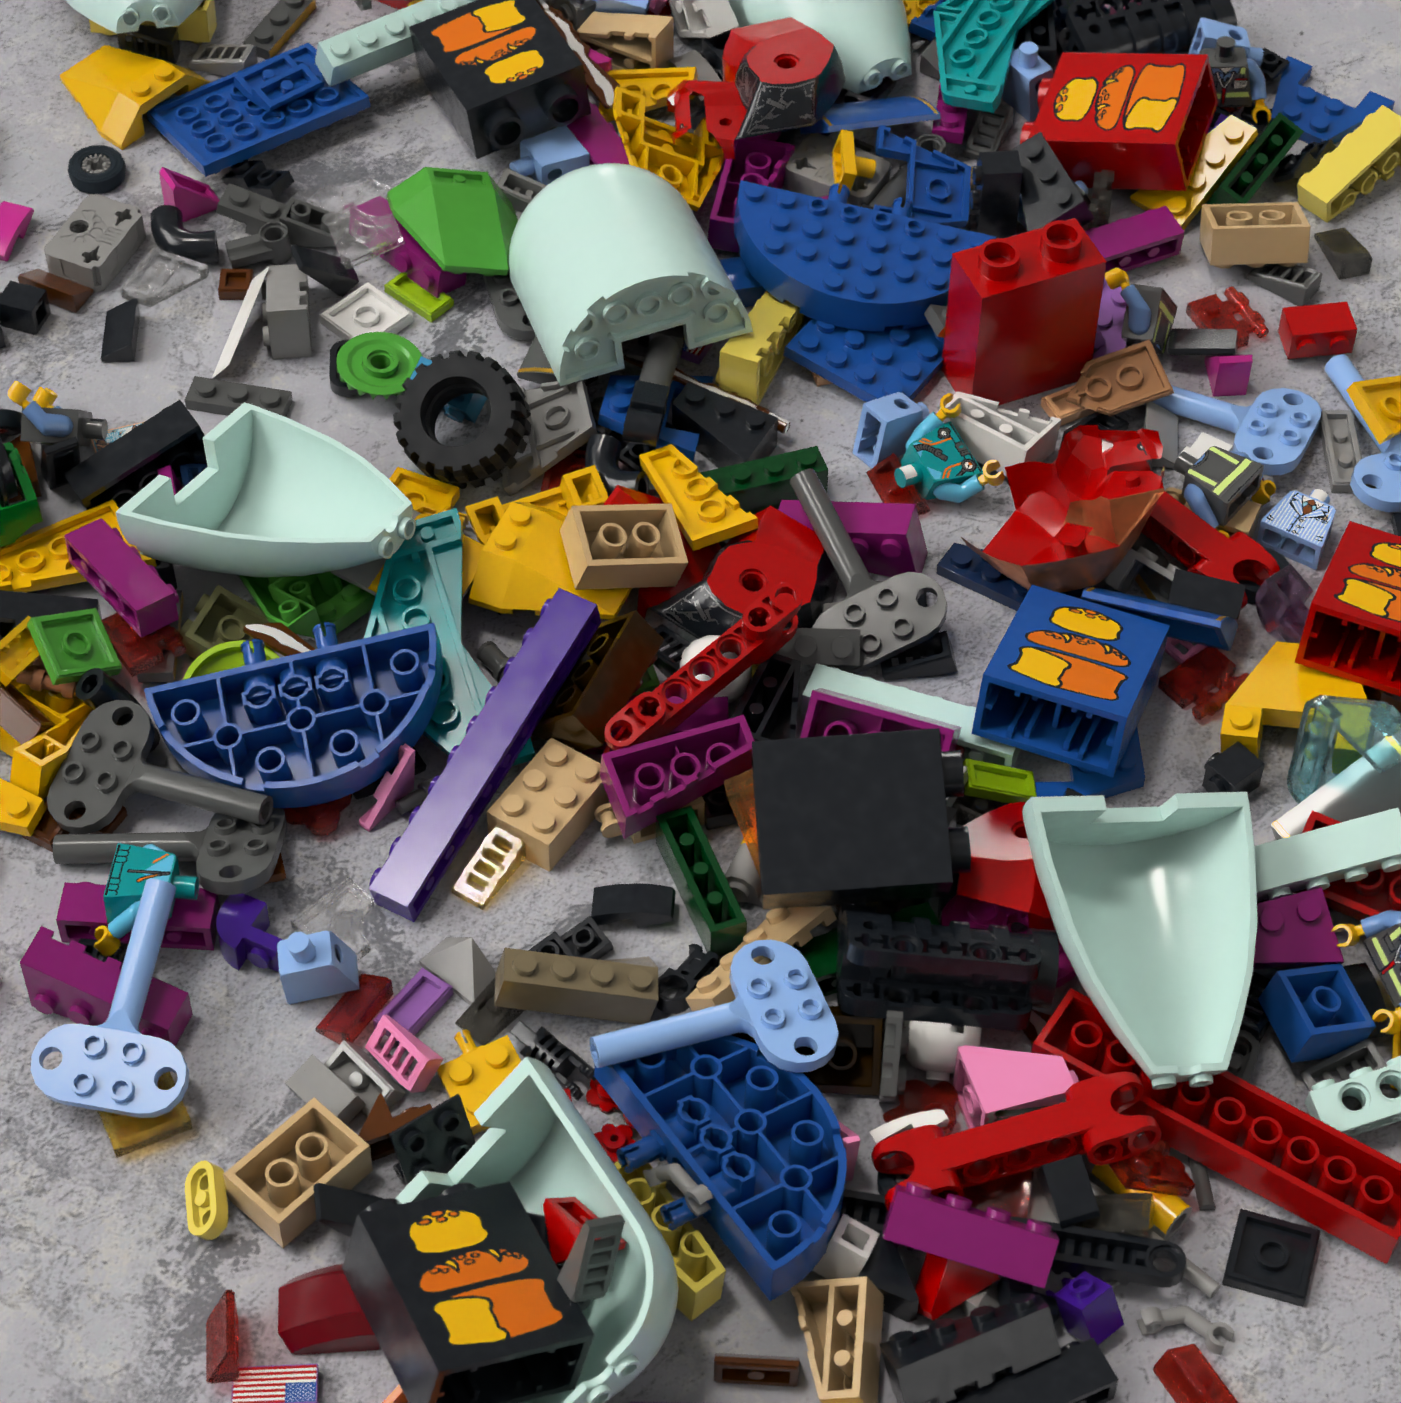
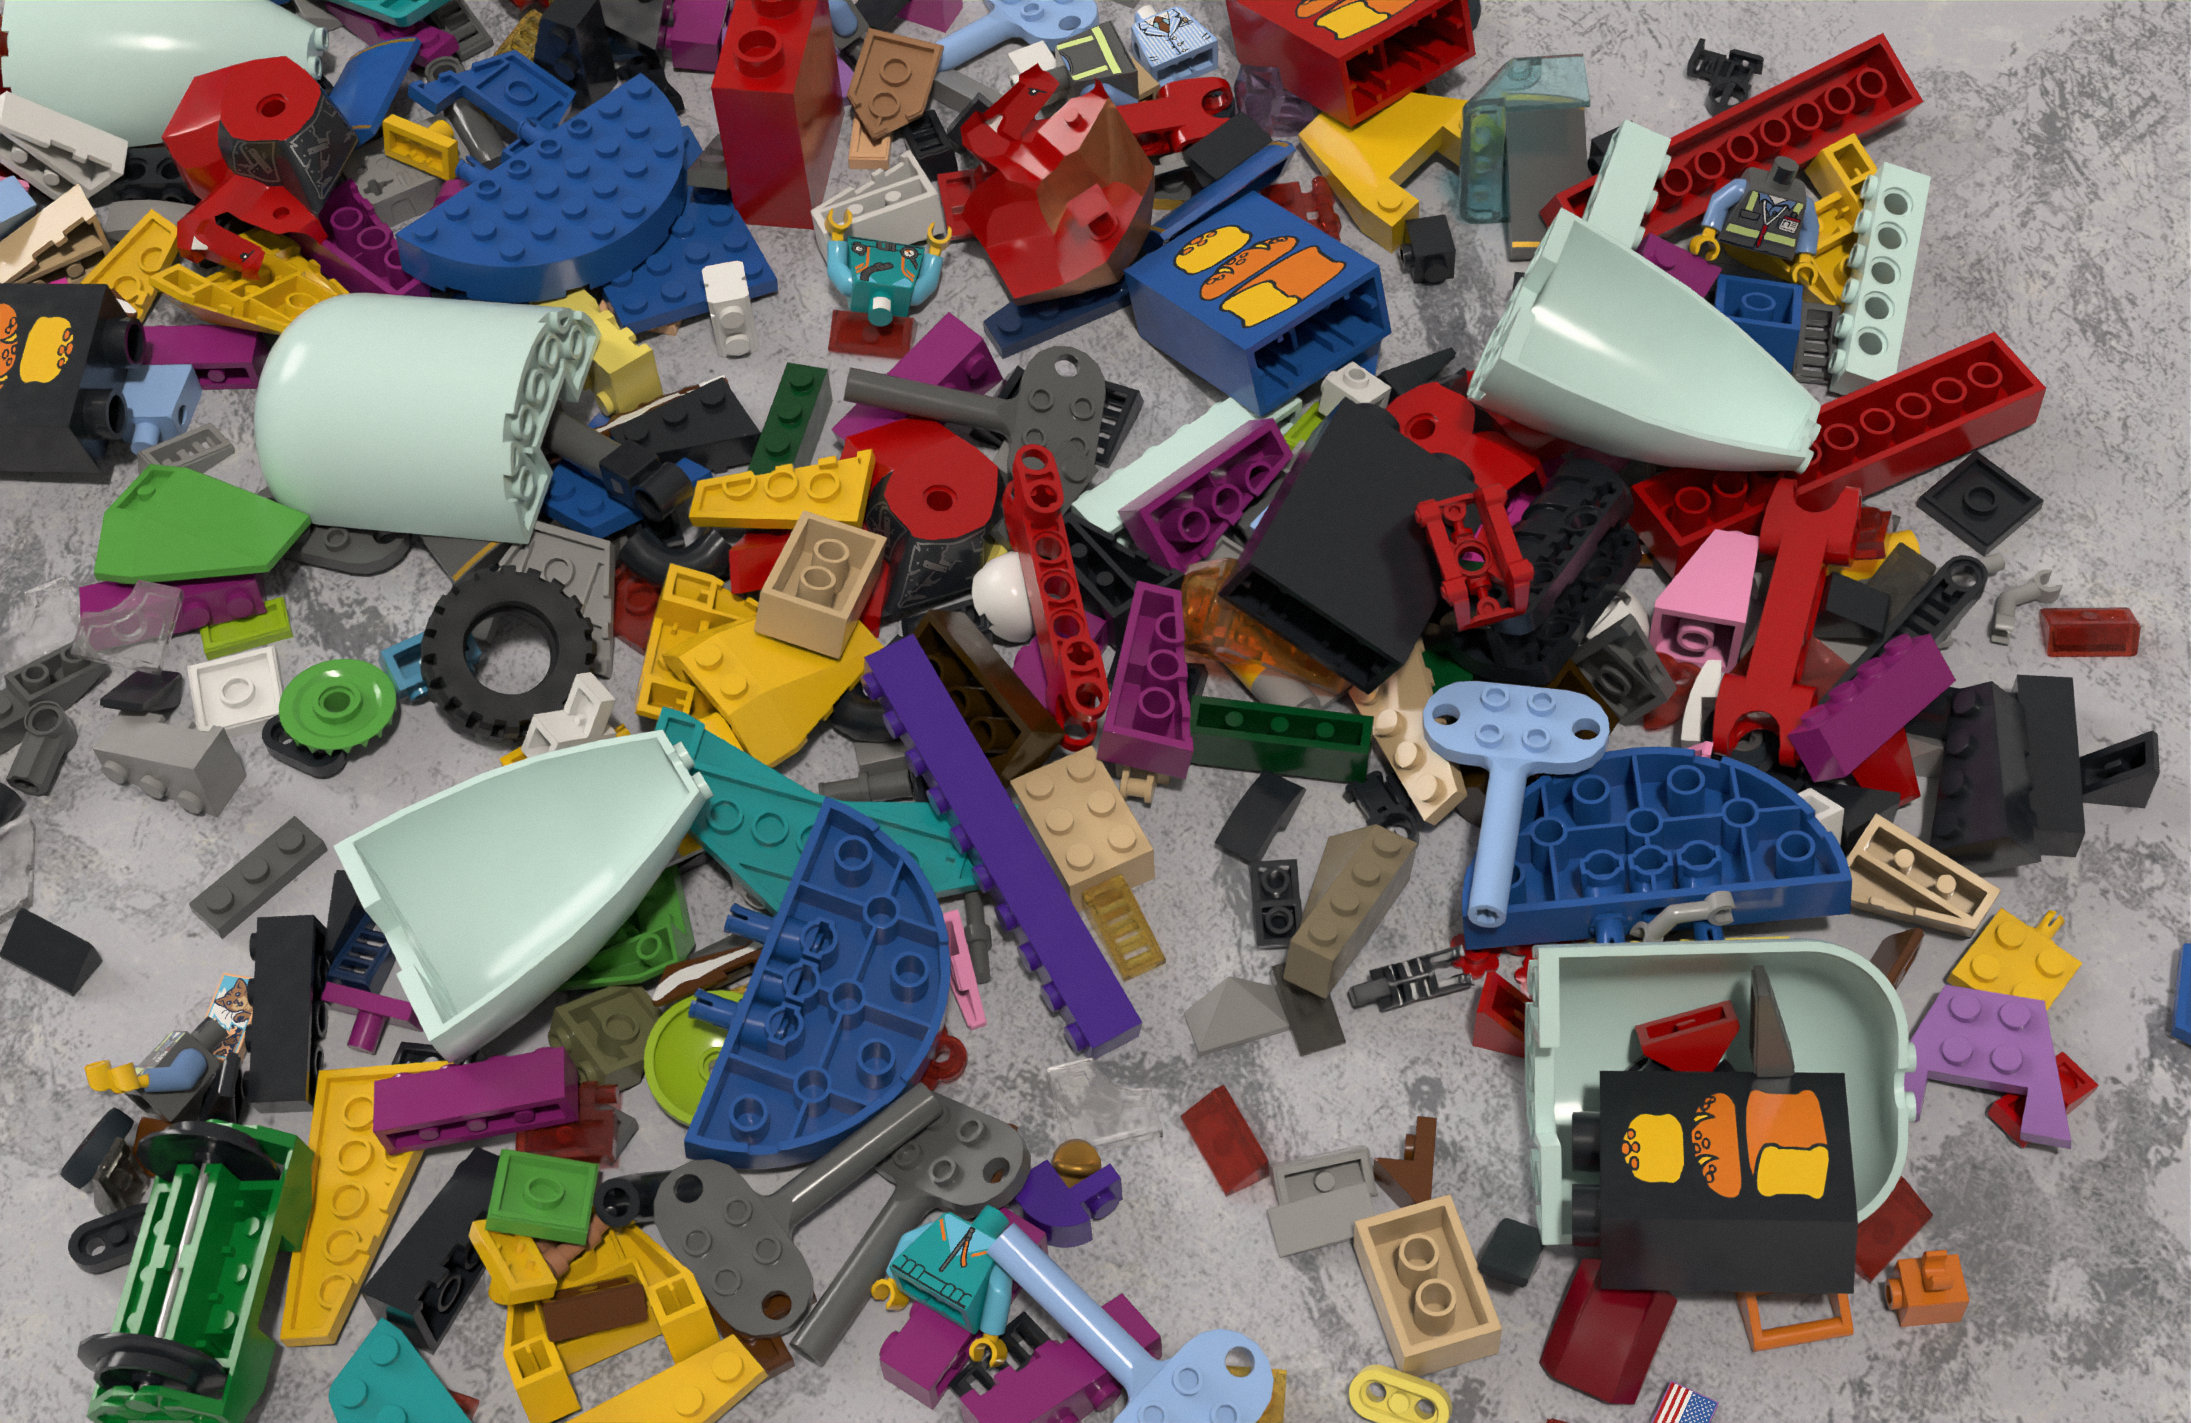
camera: 55 degrees left, 5 degrees up
(234, 283) = (72, 801): reddish brown tile -> none
(240, 322) = (150, 817): white sticker -> none
(282, 923) = (1075, 1161): none -> pearl gold tile
(316, 966) = (1164, 1153): light blue torso -> none
(417, 1002) = (1256, 1086): medium lavender tile -> none
(427, 1059) = (1344, 1132): bright pink slope -> none
(428, 486) = (579, 722): none -> white brick
(433, 1140) = (1467, 1139): black hinge -> none
(477, 1072) = (1406, 1059): yellow plate -> none
(842, 394) = (730, 308): none -> white brick
(857, 867) = (1494, 544): none -> red piece
(886, 427) = (798, 285): light blue torso -> none
(1039, 778) = (1356, 385): none -> white brick
(1088, 1307) = (1976, 660): dark purple brick -> none

